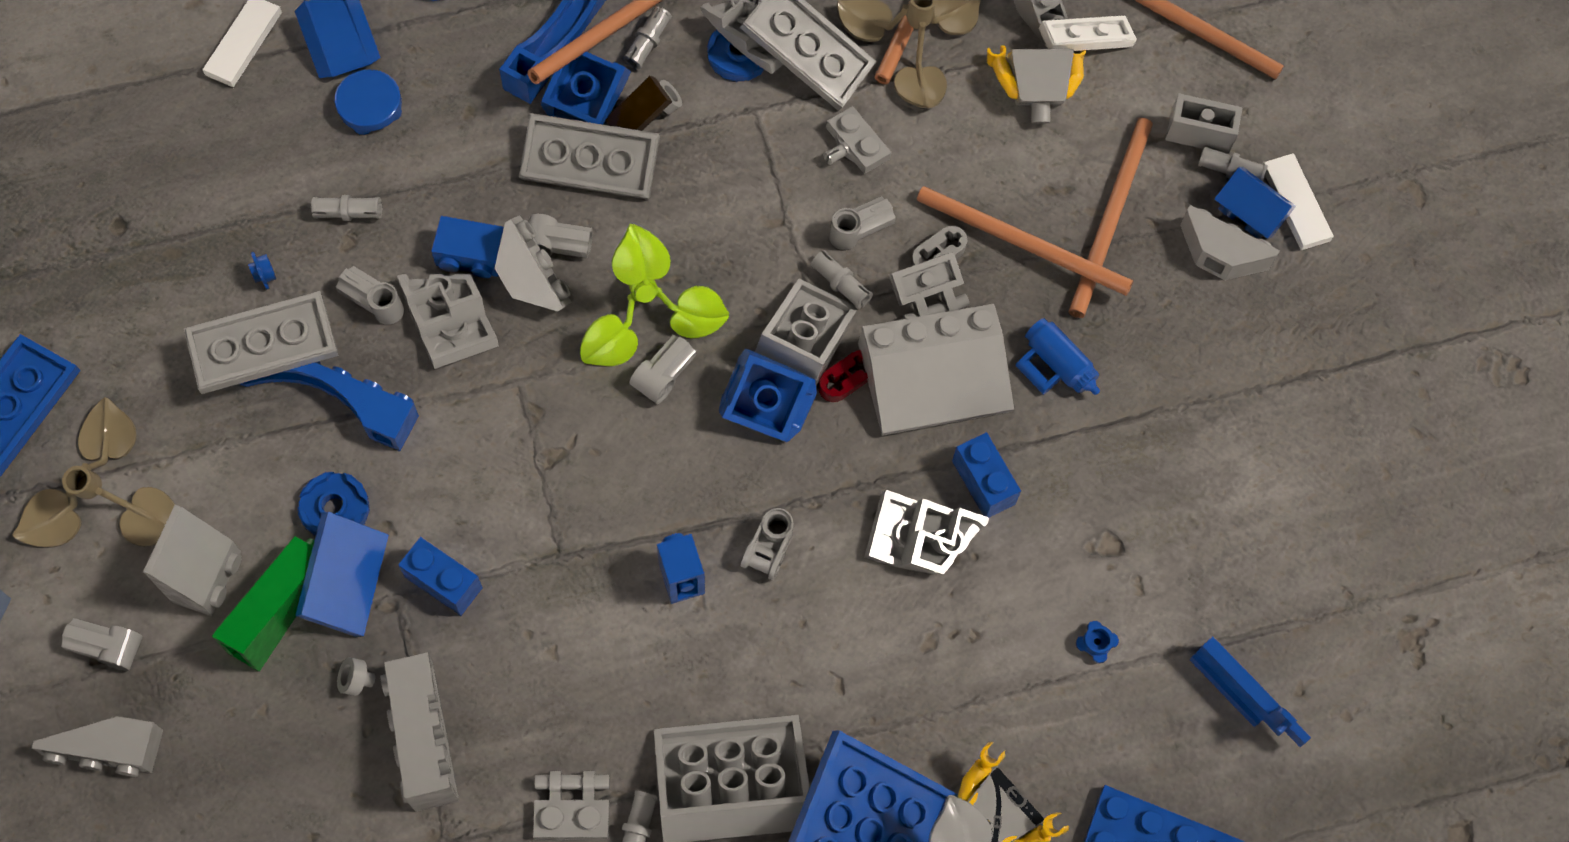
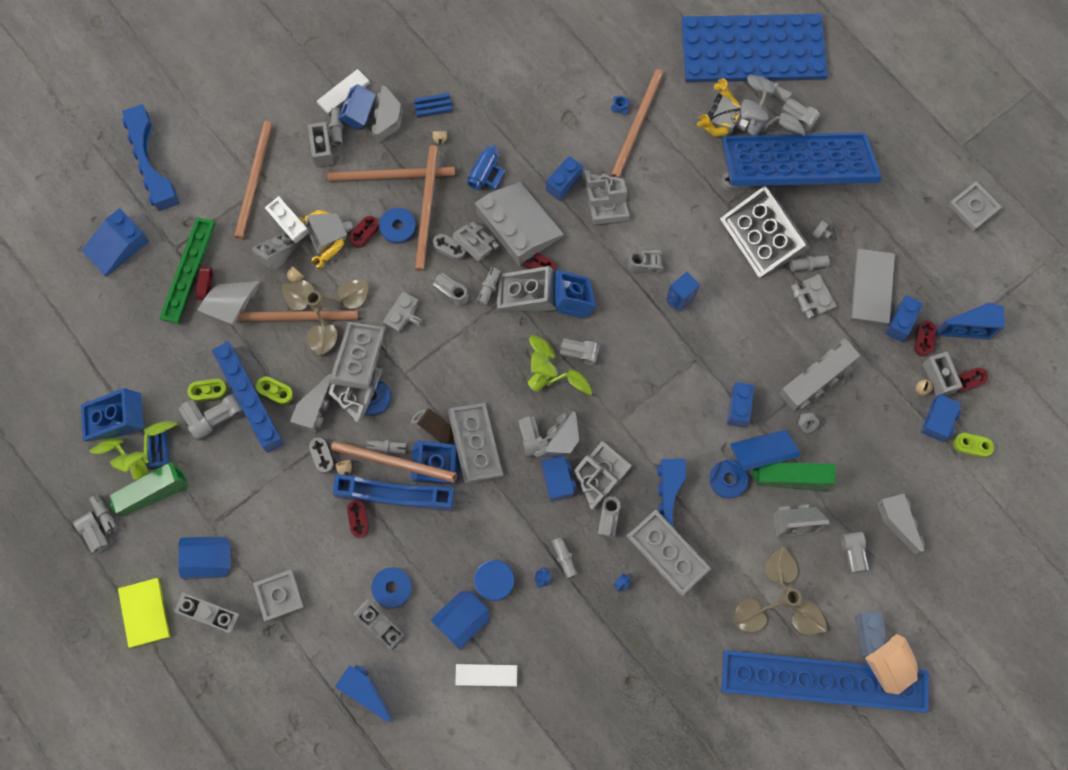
camera: 110 degrees left, 5 degrees up
(334, 164) = (542, 577): none -> blue plate
(990, 17) = (294, 275): none -> tan hinge
(1020, 176) = (393, 216): none -> blue tile
(1027, 136) = (360, 230): none -> dark red beam
(1049, 657) = (637, 123): none -> nougat piece
(1153, 314) = (439, 135): none -> tan hinge
(1222, 305) = (433, 102): none -> blue tile
(1245, 691) = (615, 35): blue piece -> none

